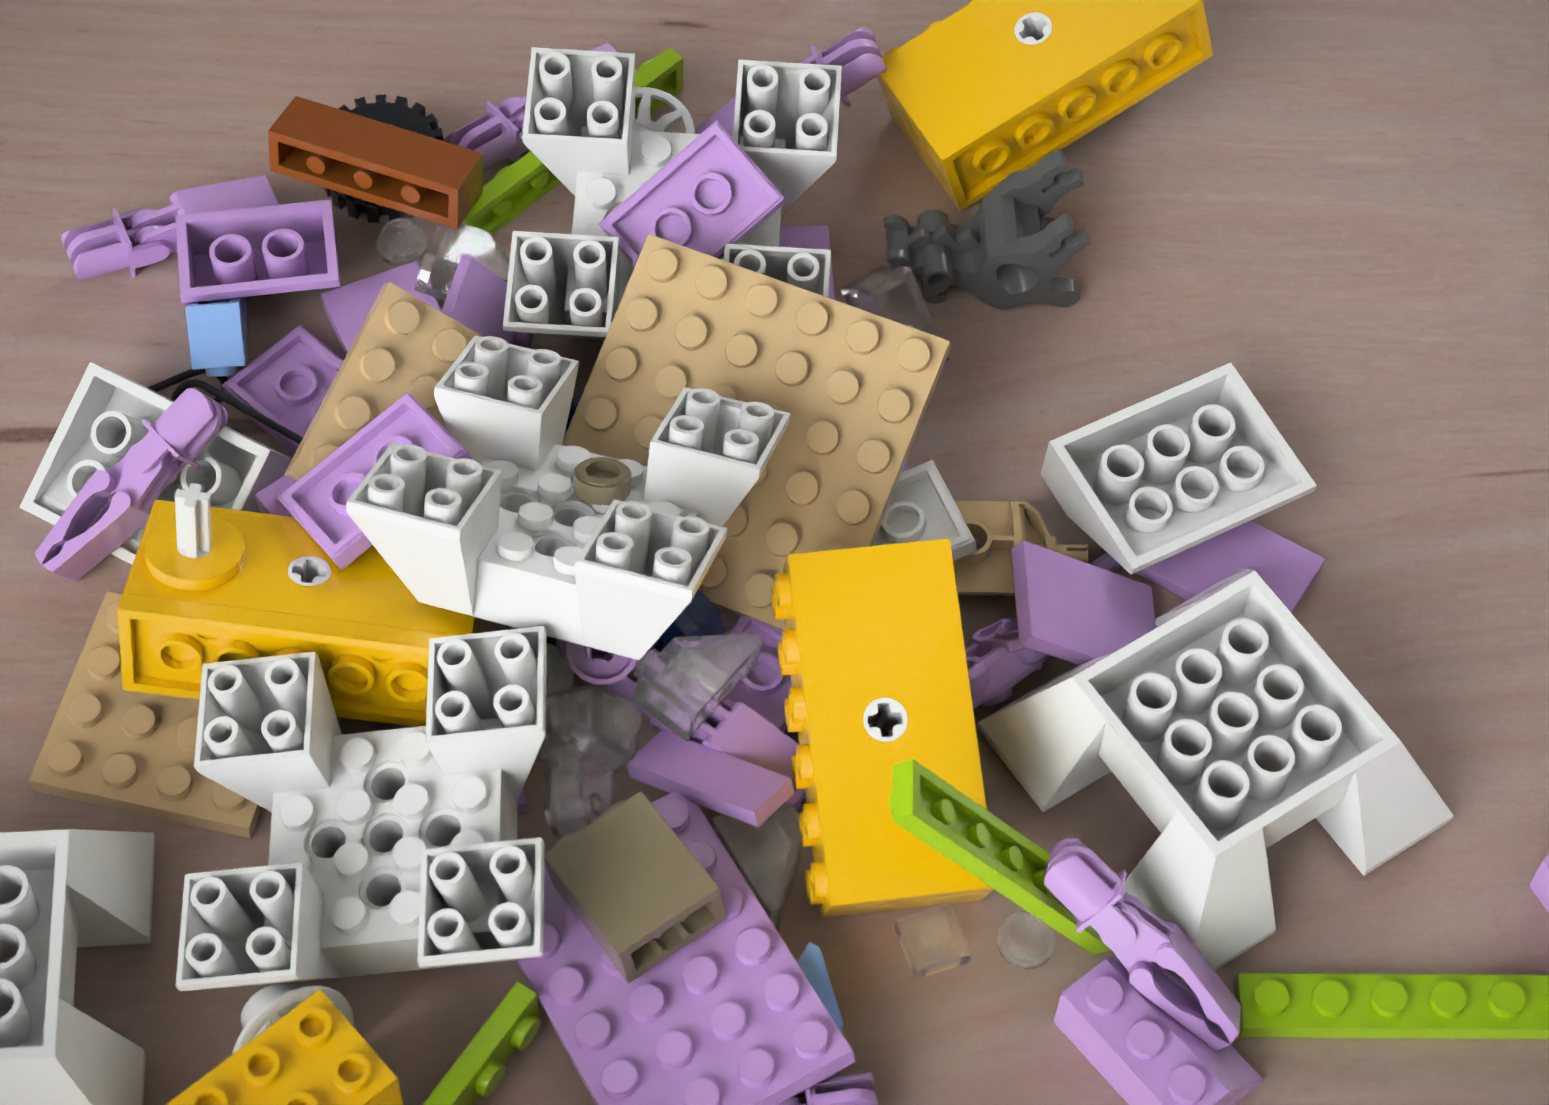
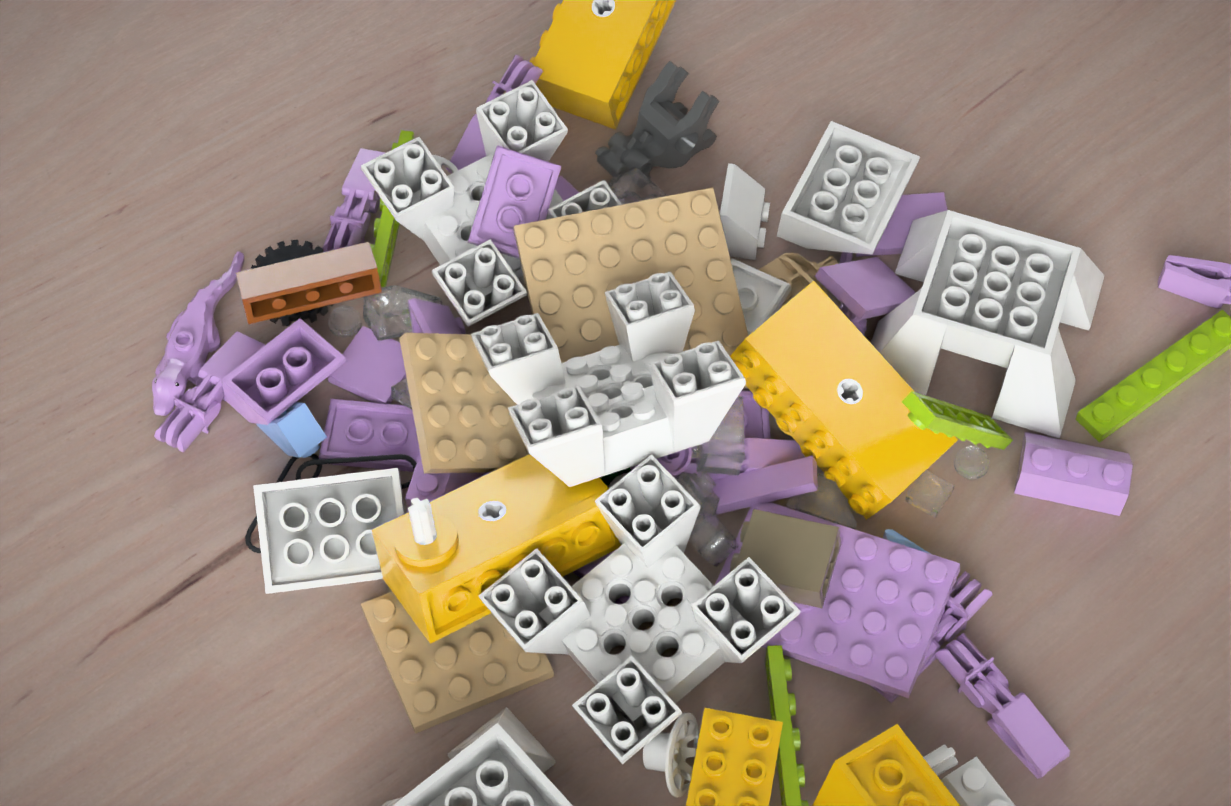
camera: 35 degrees left, 0 degrees up
(120, 500) = (344, 488): lavender arm -> none
(202, 155) = (190, 340): none -> lavender animal
(321, 495) = (484, 443): lavender tile -> none
(601, 480) = (611, 364): dark tan tile -> none
(1004, 412) = (742, 213): none -> white slope
(1144, 944) = (1012, 413): lavender arm -> none

